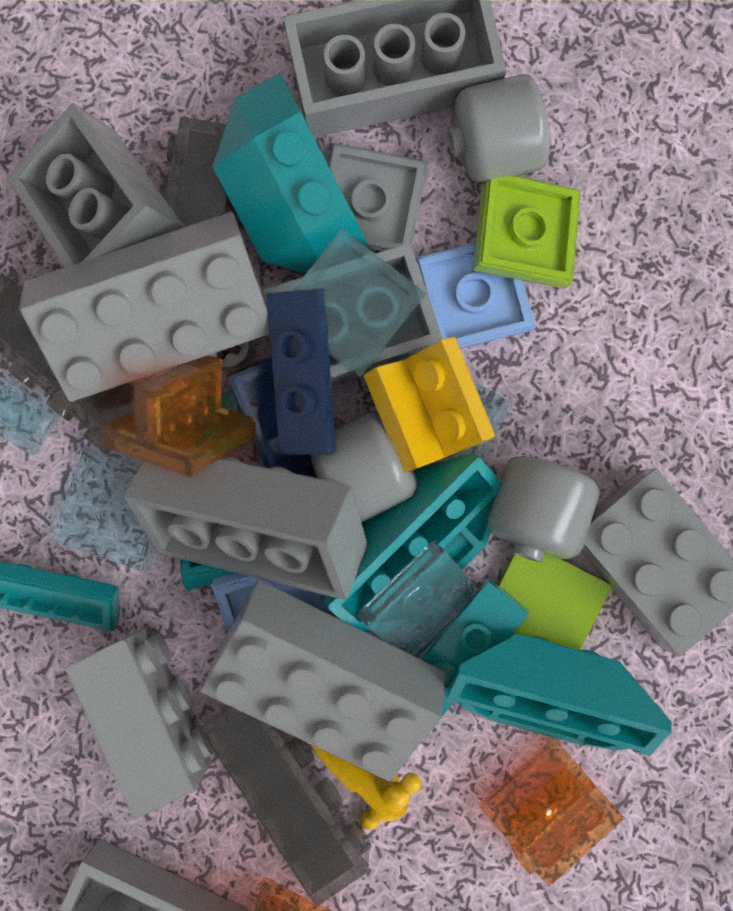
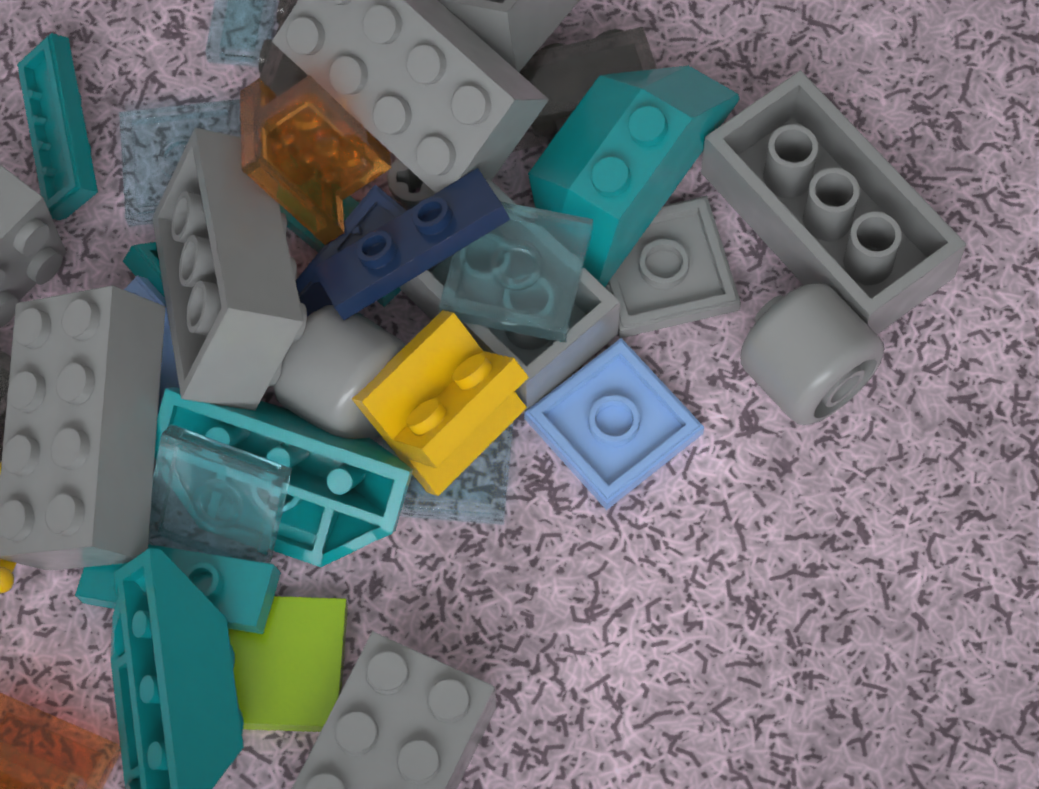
camera: 65 degrees right, 20 degrees down
(527, 230) = (715, 440): lime tile -> none
(543, 508) = (386, 584): light grey head -> none

